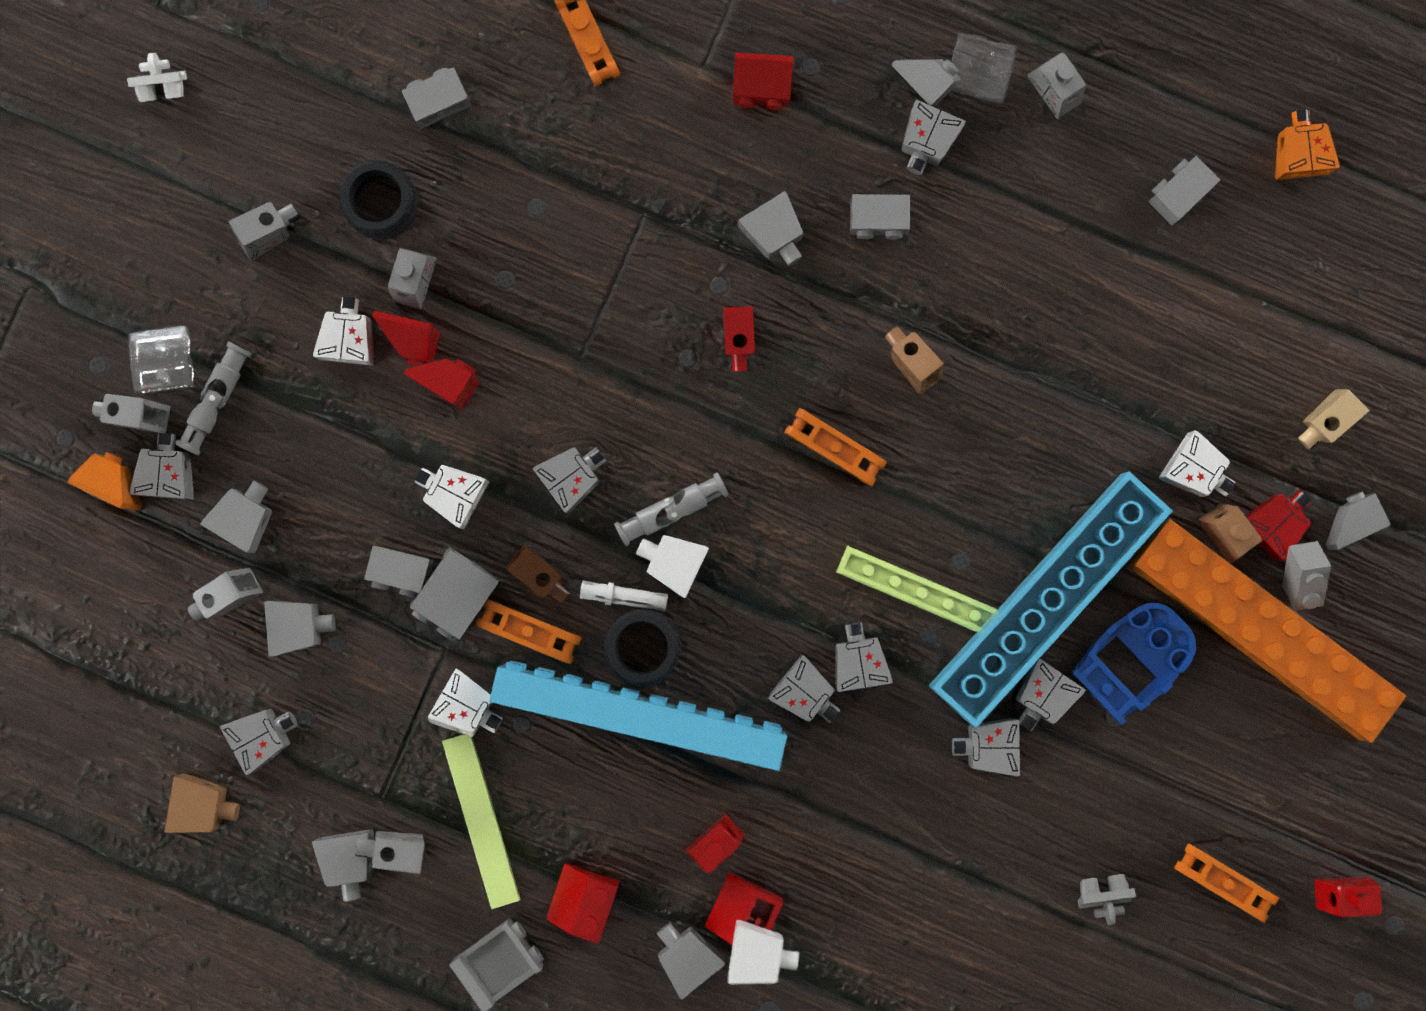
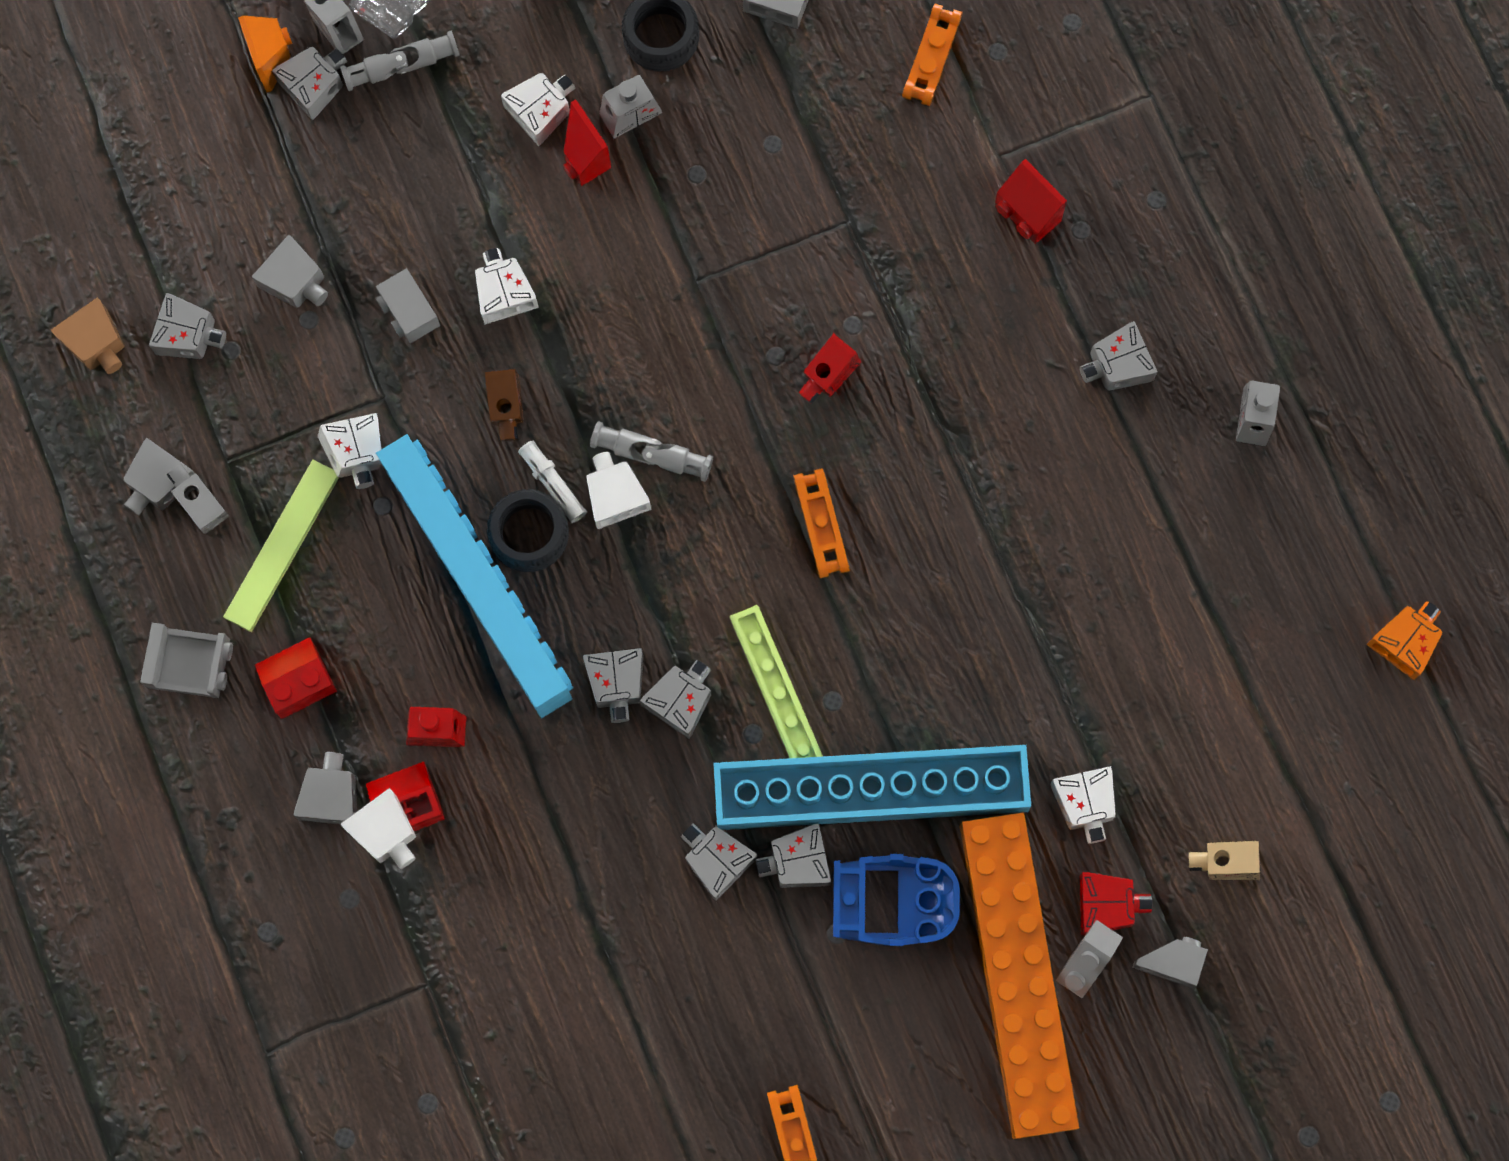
camera: 45 degrees right, 10 degrees down
(224, 594) = (266, 204): light grey torso -> none
(240, 517) = (333, 162): light grey torso -> none
(446, 379) = (581, 202): red slope -> none
(453, 594) = (428, 358): light grey panel -> none
(528, 631) = (456, 440): orange plate -> none
(570, 476) = (600, 357): light grey torso -> none
(774, 229) = (934, 319): light grey torso -> none
(879, 215) = (1024, 383): light grey brick -> none
(920, 369) = (944, 513): medium nougat torso -> none
(929, 77) = (1161, 317): light grey slope -> none
(983, 67) = (1211, 347): clear slope -> none
(1118, 893) = (688, 1064): light grey hips -> none
(1184, 190) = (1281, 580): light grey brick -> none
(1231, 532) = (1063, 875): medium nougat torso -> none

